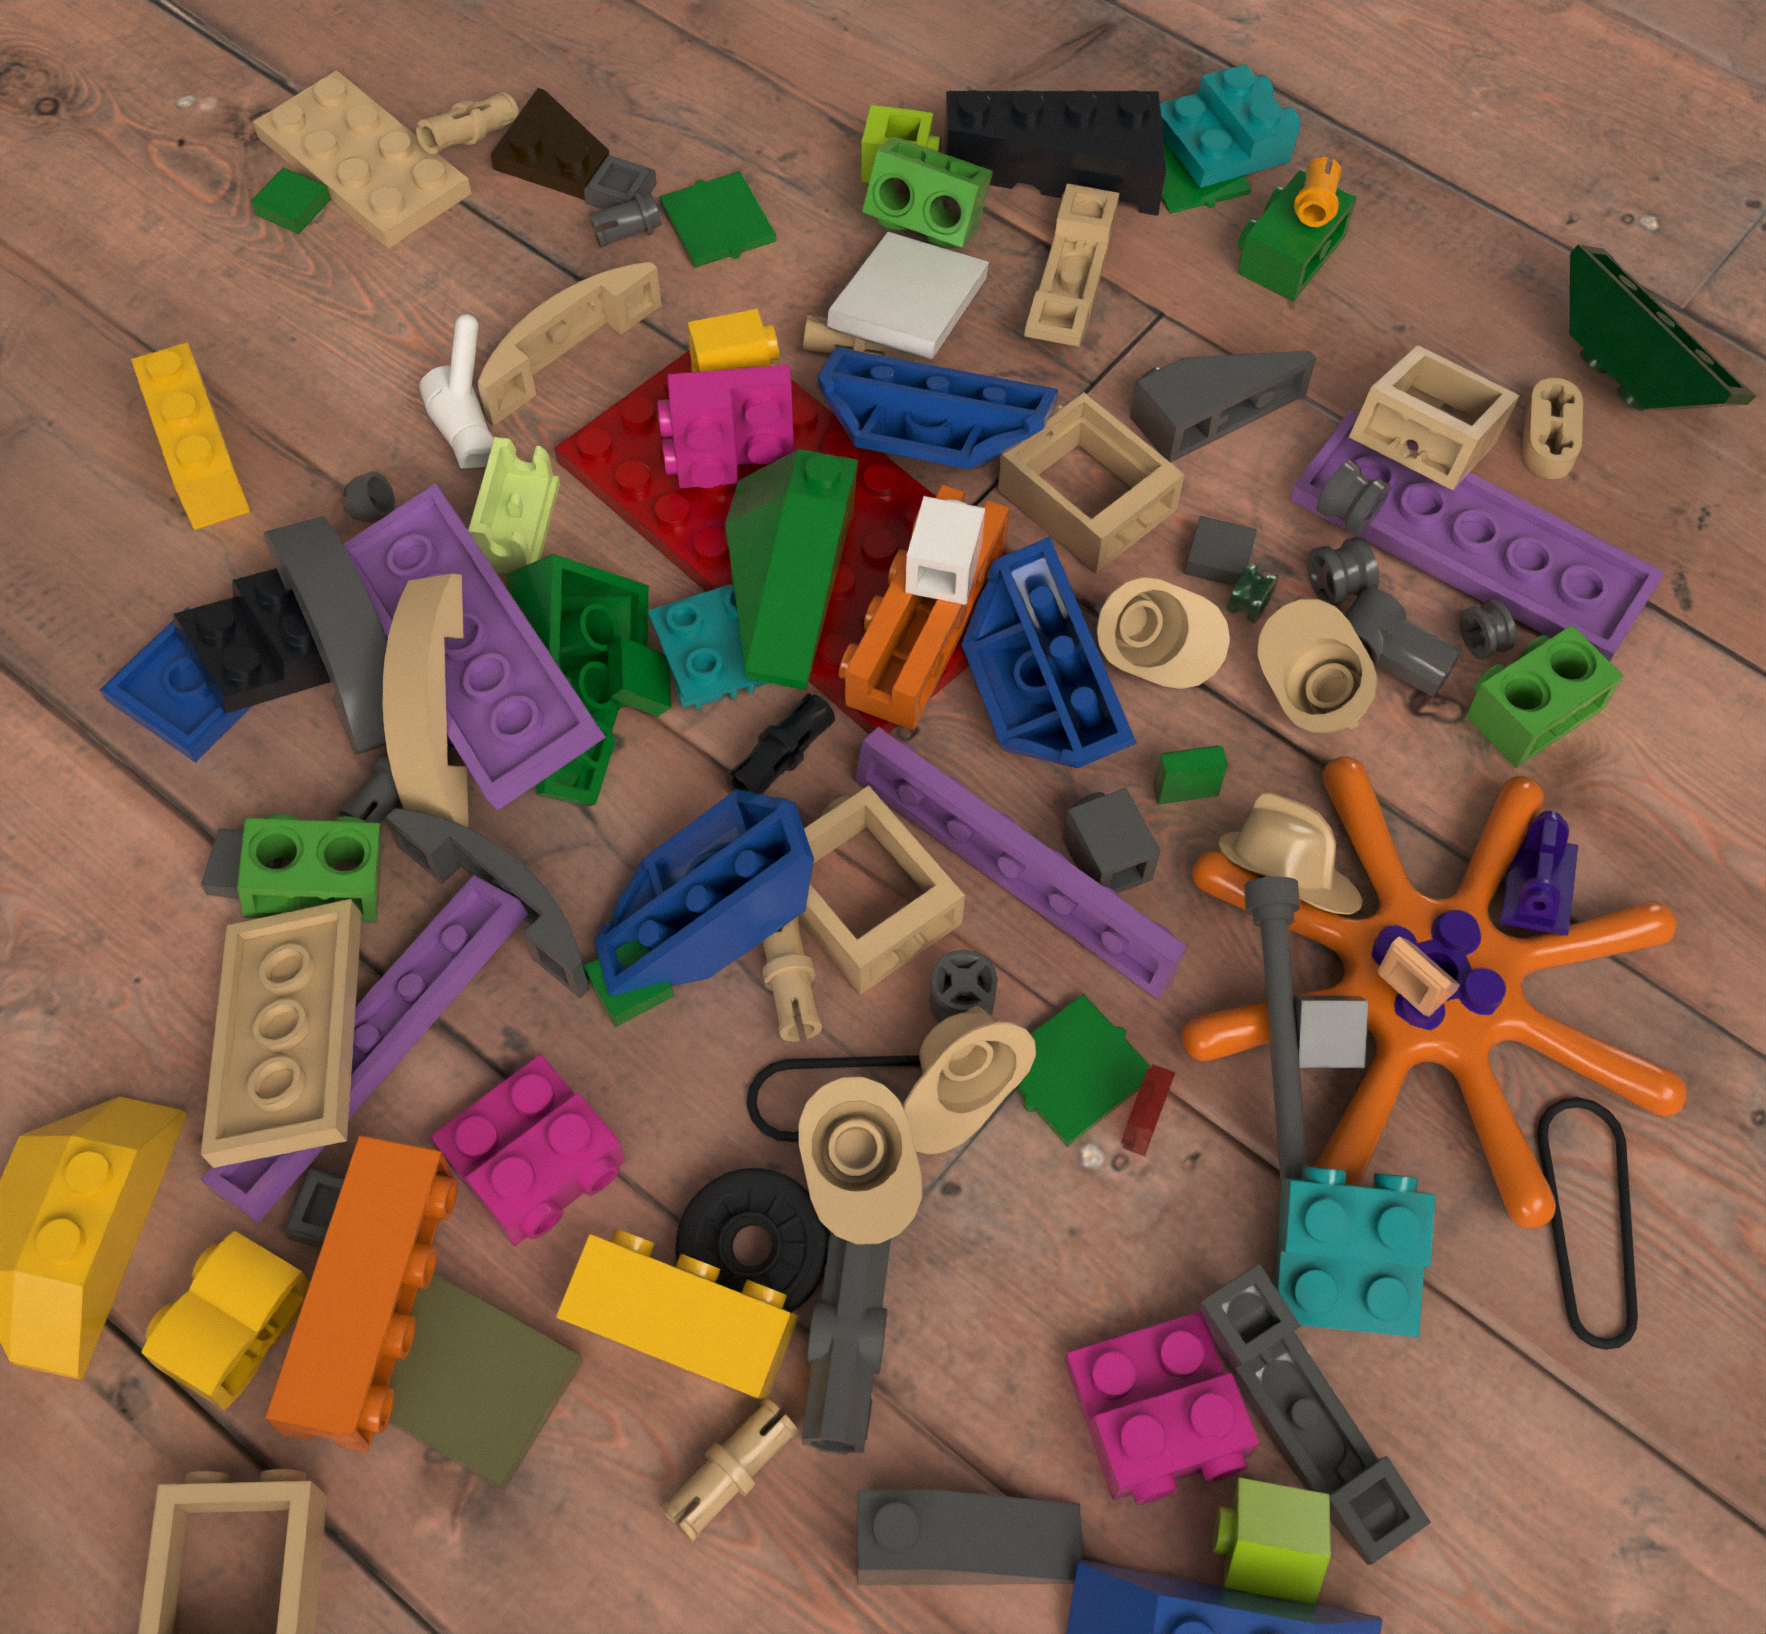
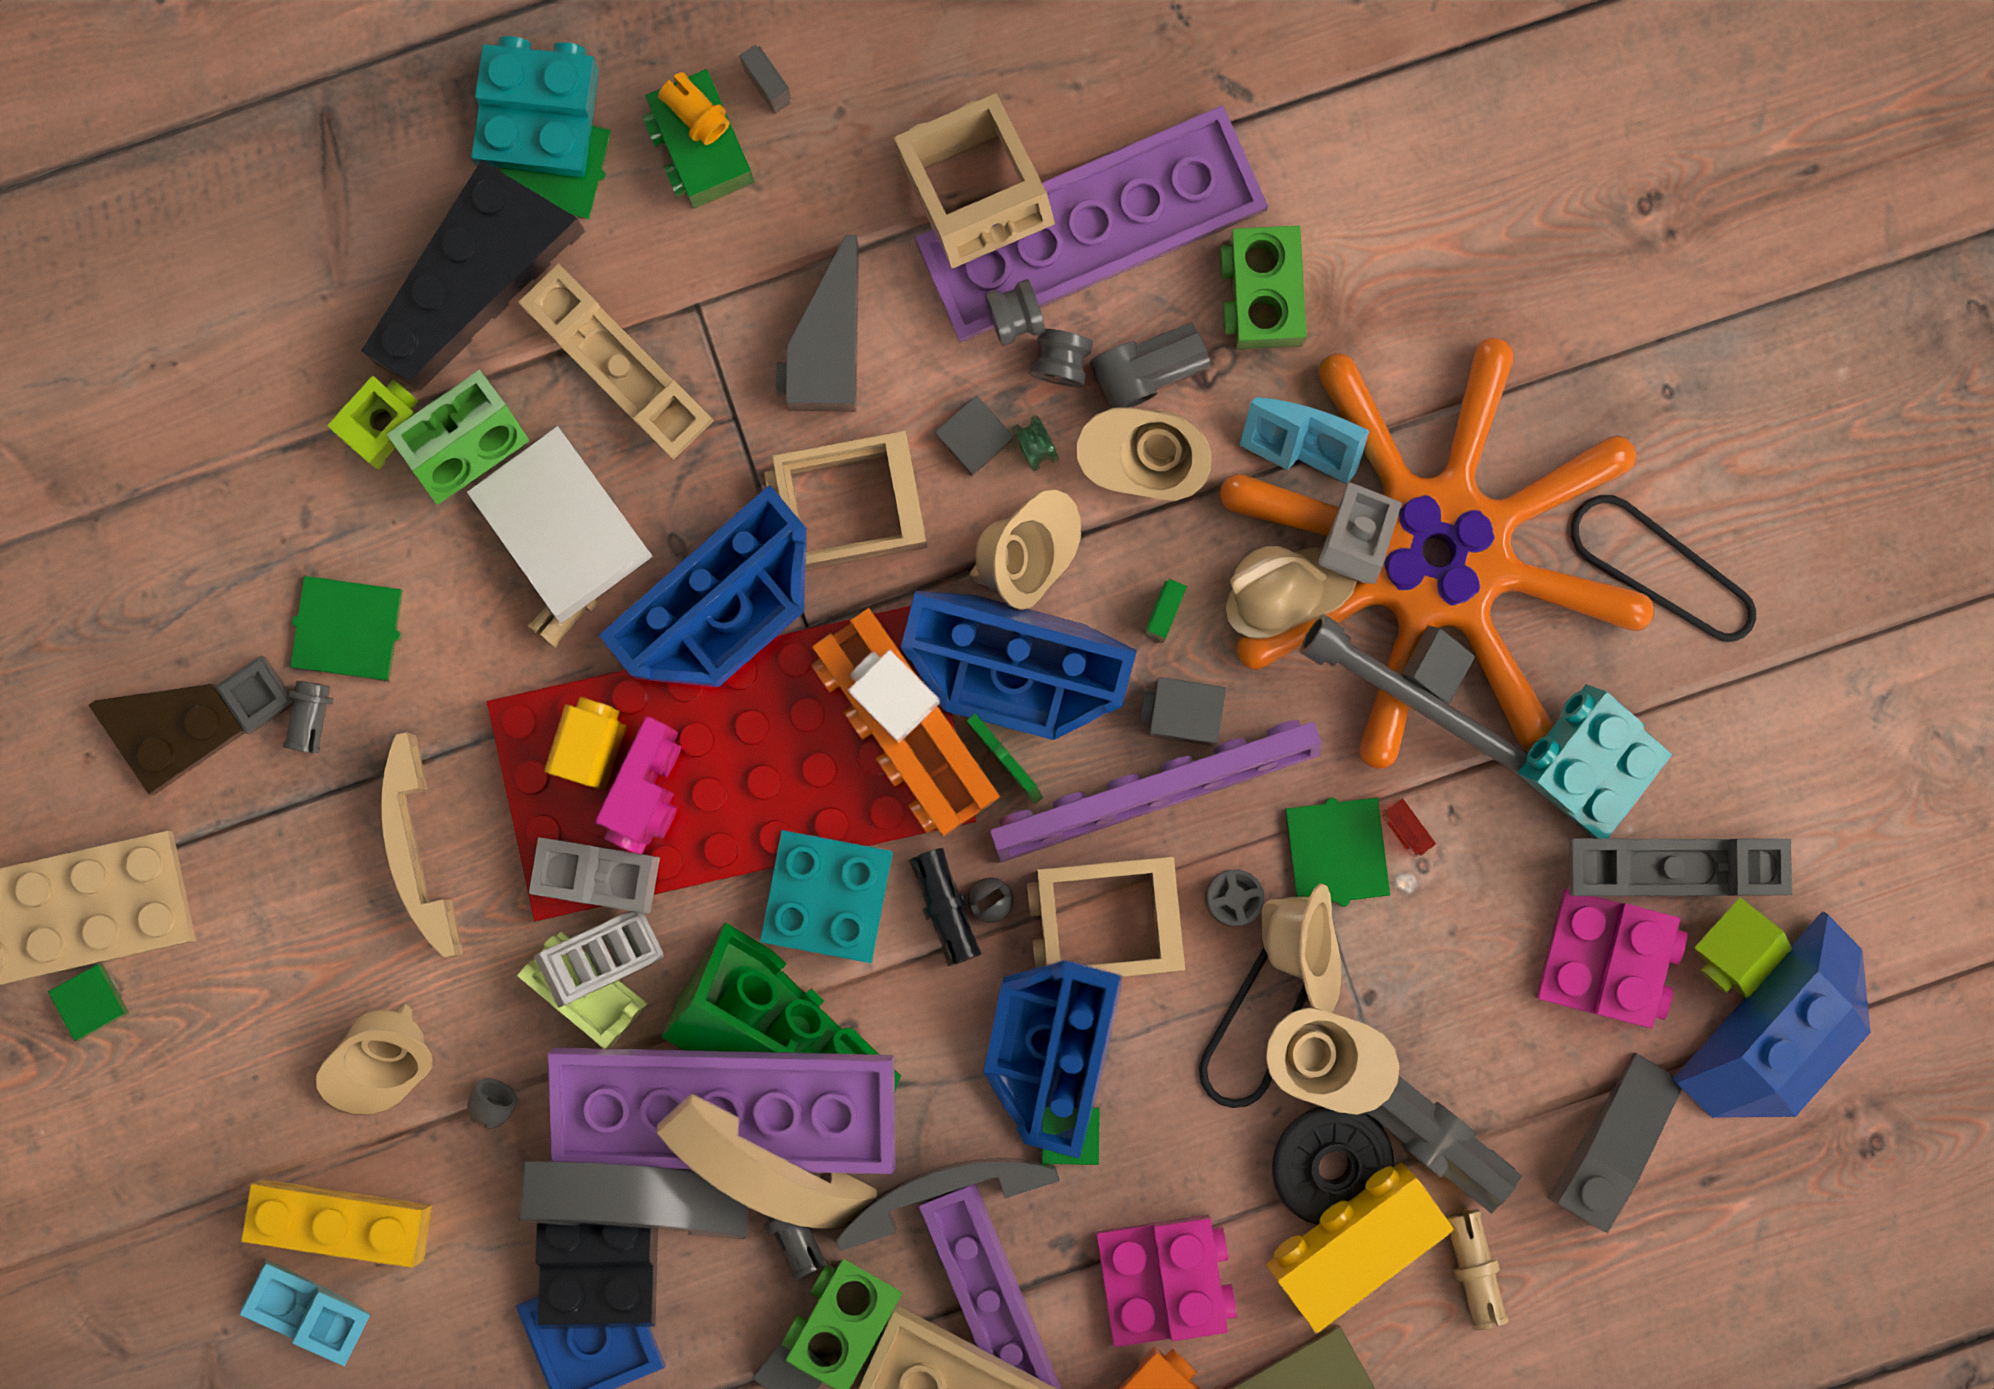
camera: 55 degrees left, 25 degrees up
(96, 461) = (305, 1312): none -> medium azure slope
(353, 390) = (375, 1063): none -> tan piece
(454, 403) = (442, 982): white piece -> none
(466, 122) = (110, 830): tan pin -> none
(579, 495) = (629, 941): none -> light grey slope
(623, 455) = (594, 875): none -> light grey slope
(639, 676) = (813, 981): green tile -> none
(785, 557) = (782, 803): green wedge -> none
(790, 979) = (1155, 1021): tan pin -> none
(809, 794) = (997, 910): none -> dark grey hinge
(953, 701) = (1005, 759): none -> green piece
(1382, 252) = (765, 78): none -> dark grey tile
(1391, 874) = (1360, 534): none -> light grey slope
(1416, 976) = (1444, 574): light nougat slope -> none
(1442, 799) = (1296, 432): none -> medium azure slope
(1488, 629) = (1182, 282): dark grey bush -> none
(1542, 878) = (1414, 414): dark purple hinge -> none
(1564, 430) = (1035, 62): tan beam -> none

